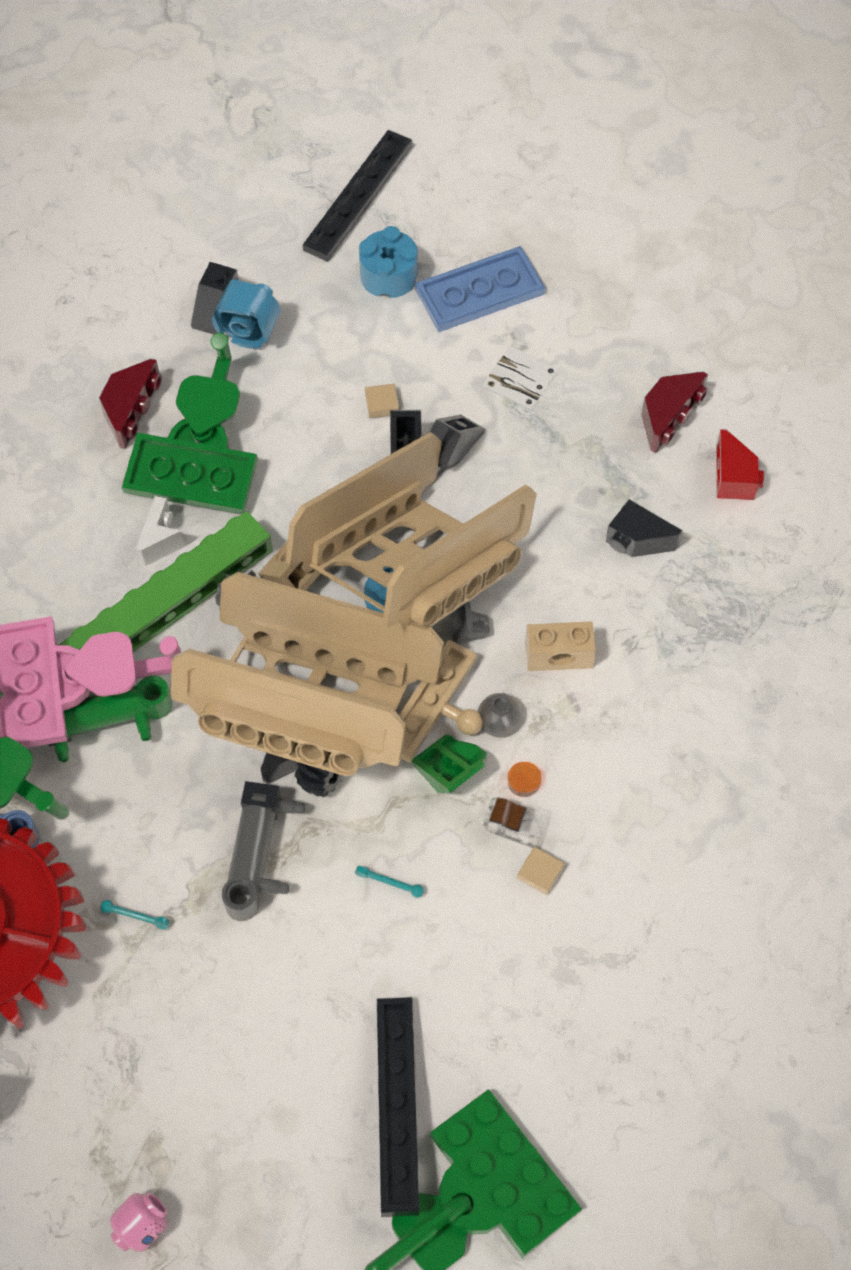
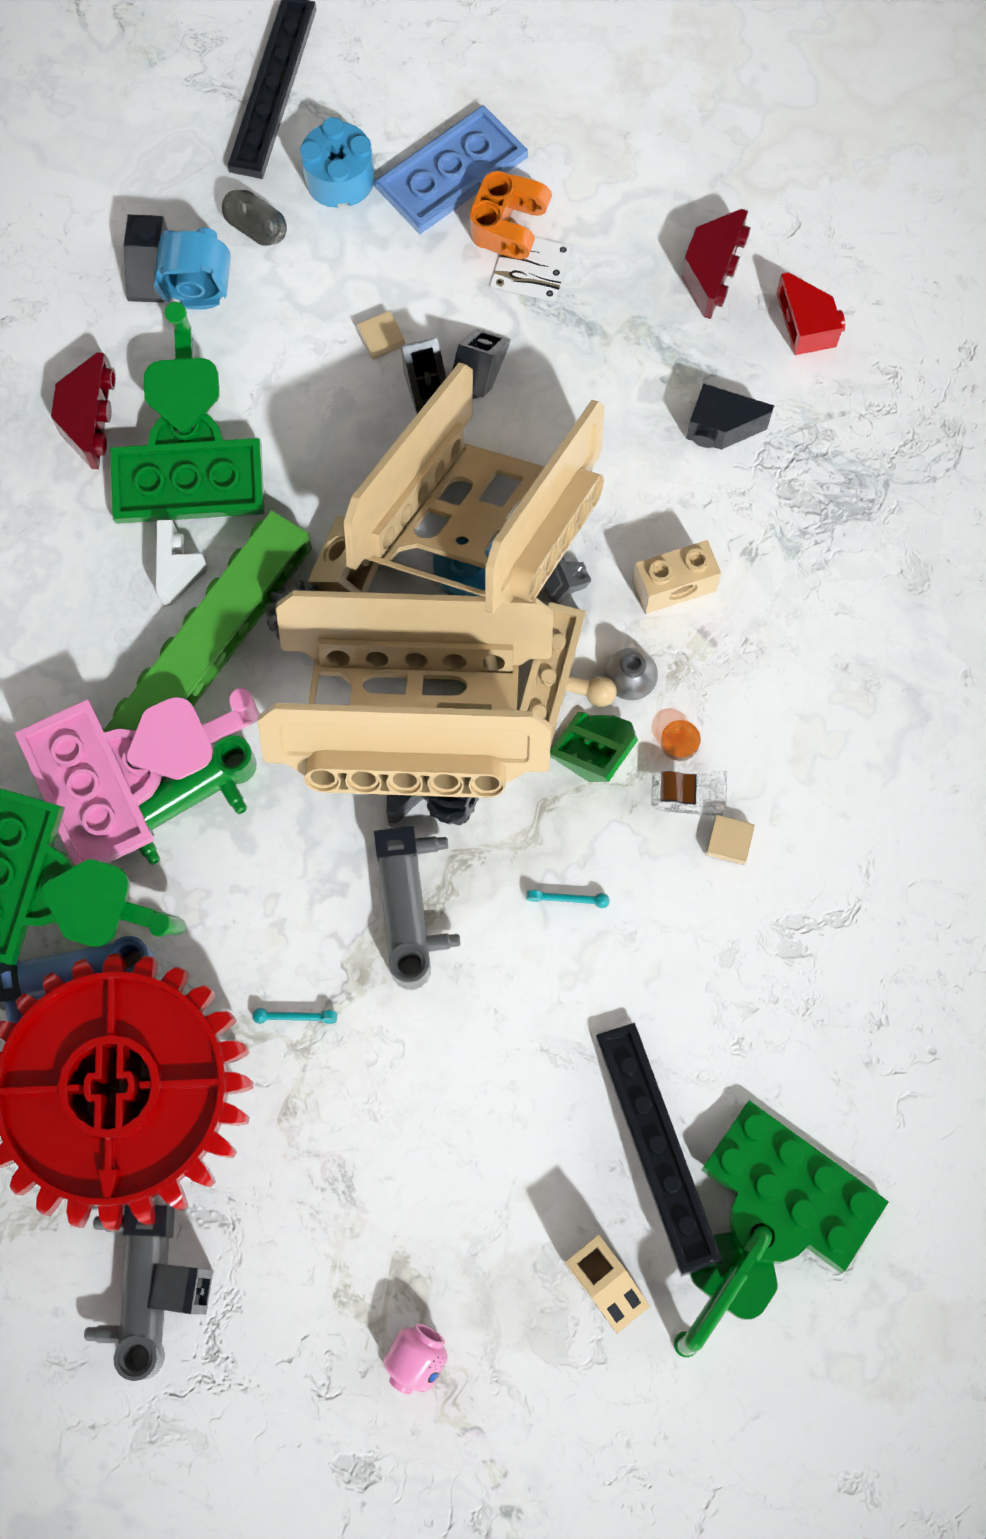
camera: 15 degrees left, 10 degrees up
(314, 292) = (256, 220): none -> clear smoke plate
(317, 1205) = (607, 1284): none -> tan slope
(504, 324) = (516, 194): none -> orange piece

